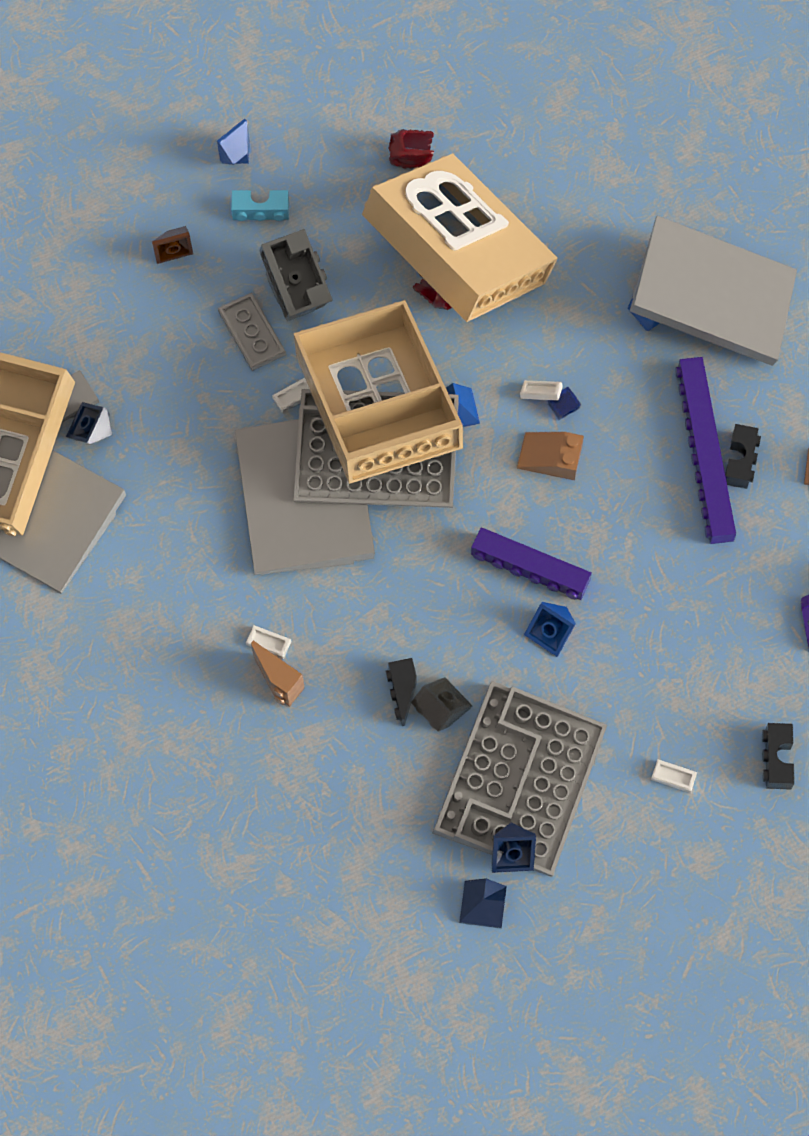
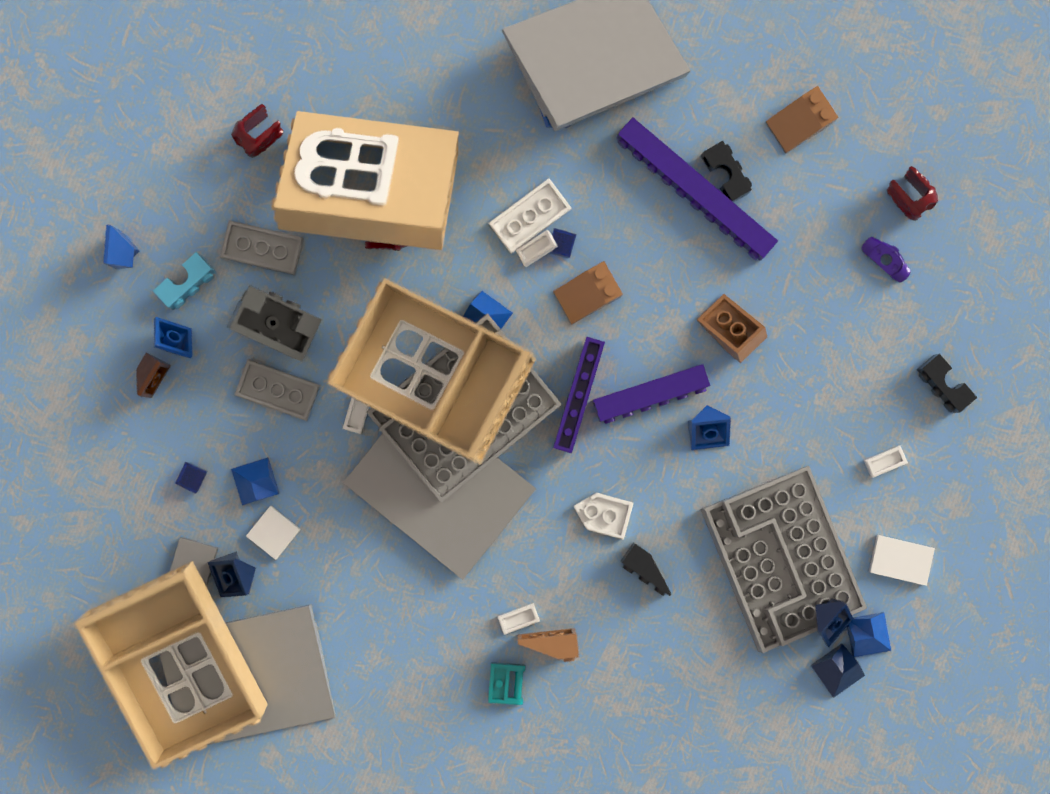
camera: 50 degrees left, 20 degrees up
(130, 337) = (191, 477): none -> clear blue piece
(149, 424) = (273, 532): none -> white tile
(172, 379) = (255, 481): none -> blue slope
(207, 674) = (500, 683): none -> teal plate
(212, 231) = (172, 337): none -> blue slope
(337, 229) = (262, 247): none -> light grey tile
(410, 623) = (605, 514): none -> white tile
(440, 703) = (683, 555): clear smoke slope -> none
(472, 516) = (578, 395): none -> dark purple brick
(535, 897) = (868, 635): none -> blue slope
(567, 366) = (530, 216): none -> white tile
(616, 863) = (901, 560): none -> white tile
(641, 571) = (733, 328): none -> medium nougat slope

